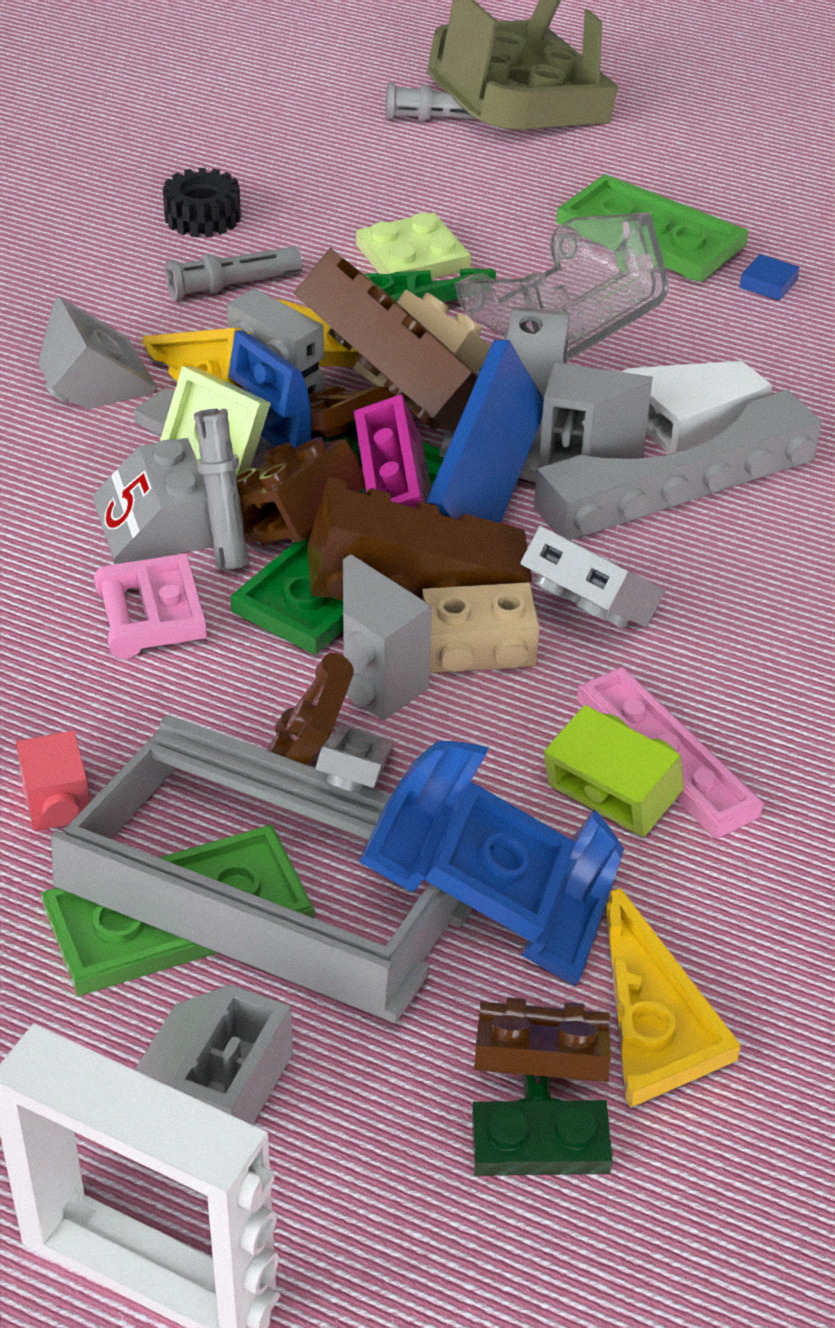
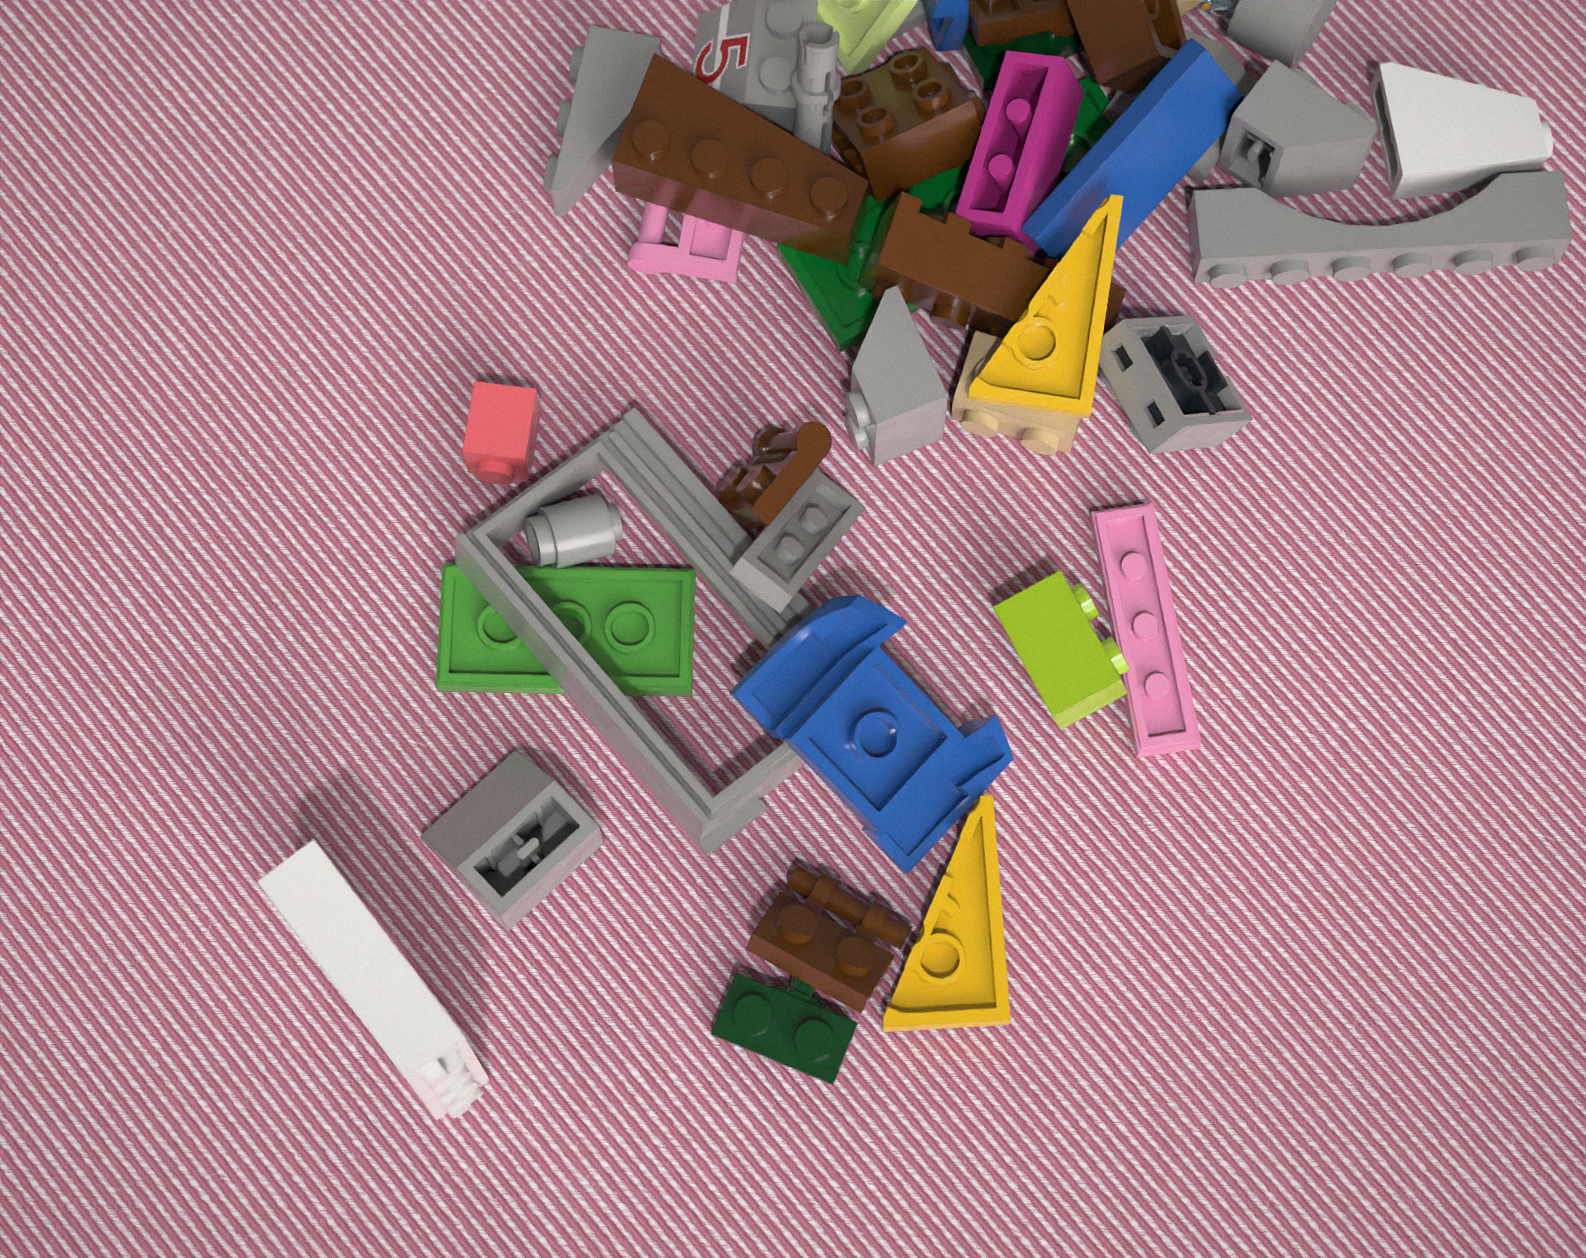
camera: 25 degrees right, 30 degrees up
(47, 562) = (606, 86): none -> light grey slope
(154, 822) = (573, 532): none -> light grey brick
(177, 546) = (734, 168): none -> reddish brown wedge
(495, 557) = (1056, 344): none -> yellow wing

